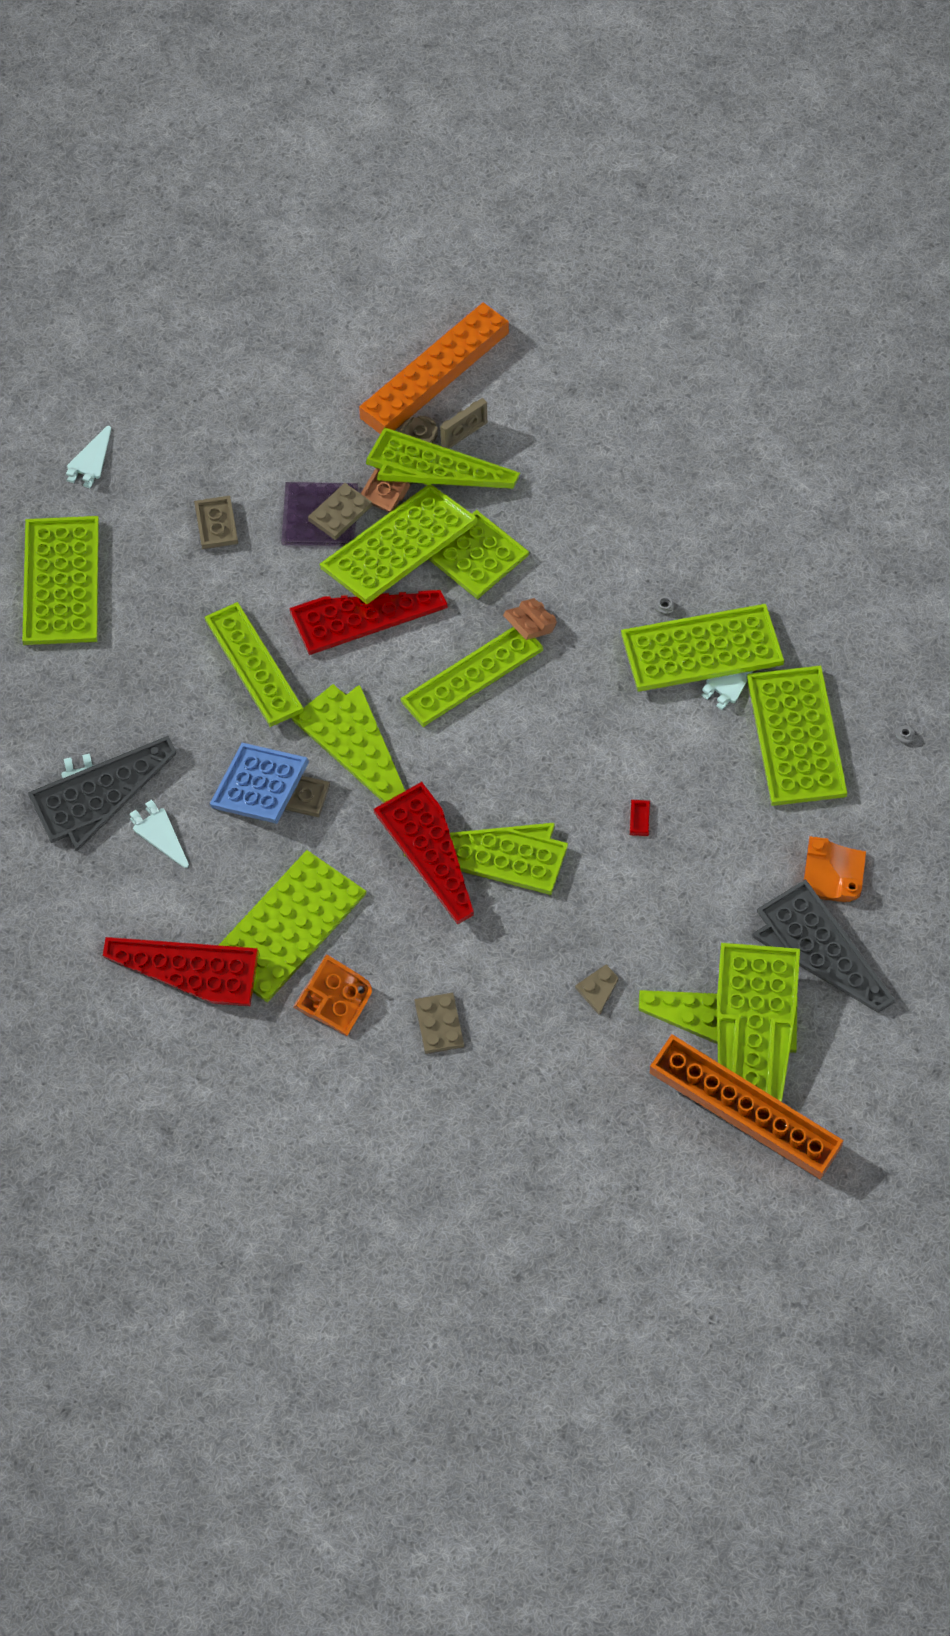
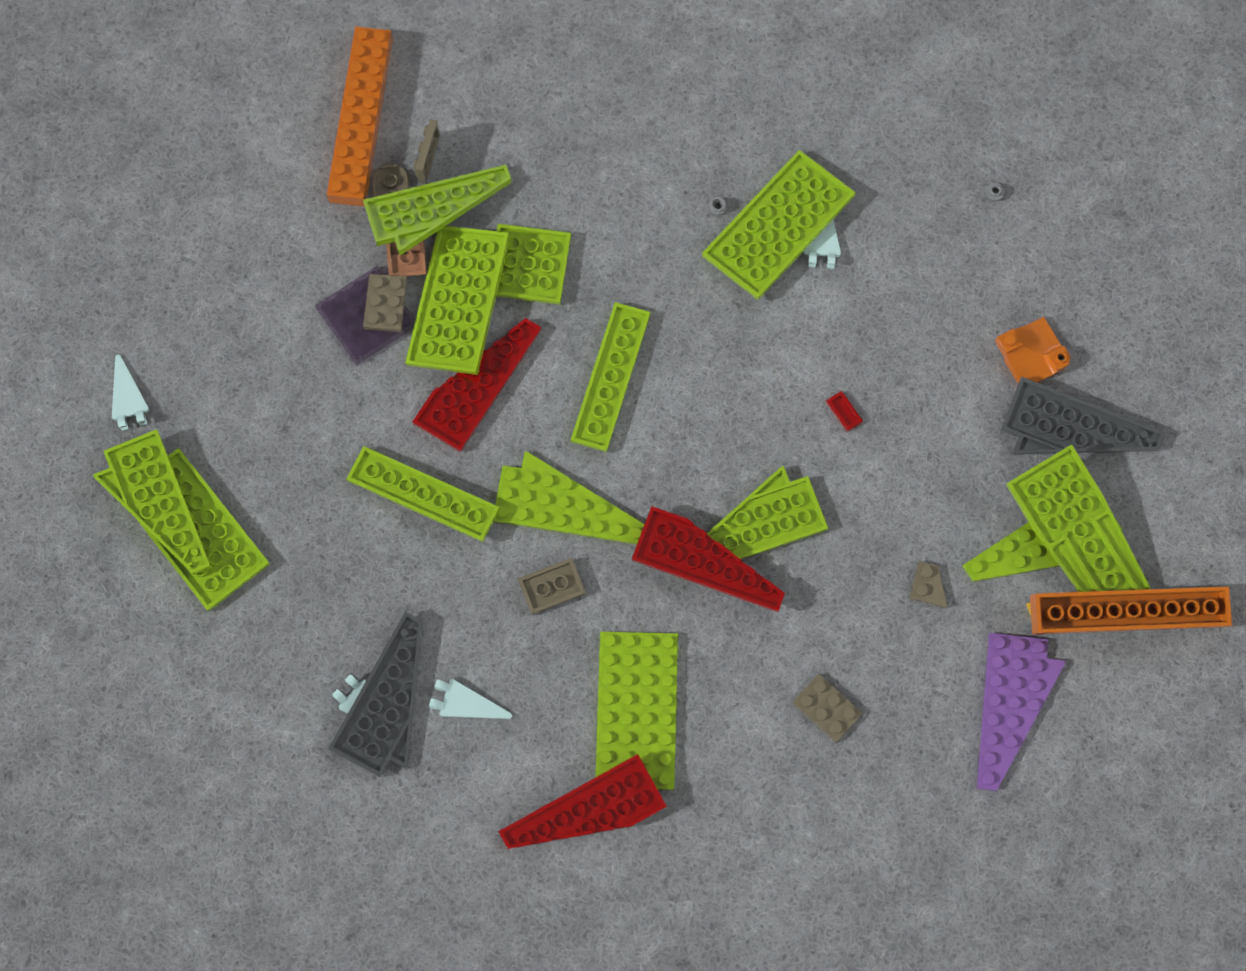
camera: 35 degrees left, 15 degrees up
(50, 531) = (148, 488): none -> lime wing
(216, 522) = (284, 383): dark tan plate -> none
(259, 783) = (516, 600): medium blue plate -> none
(334, 995) = (729, 749): orange slope -> none
(531, 619) = (622, 294): nougat plate -> none
(605, 1109) = (1014, 693): none -> medium lavender wing
(796, 735) = (912, 251): lime plate -> none

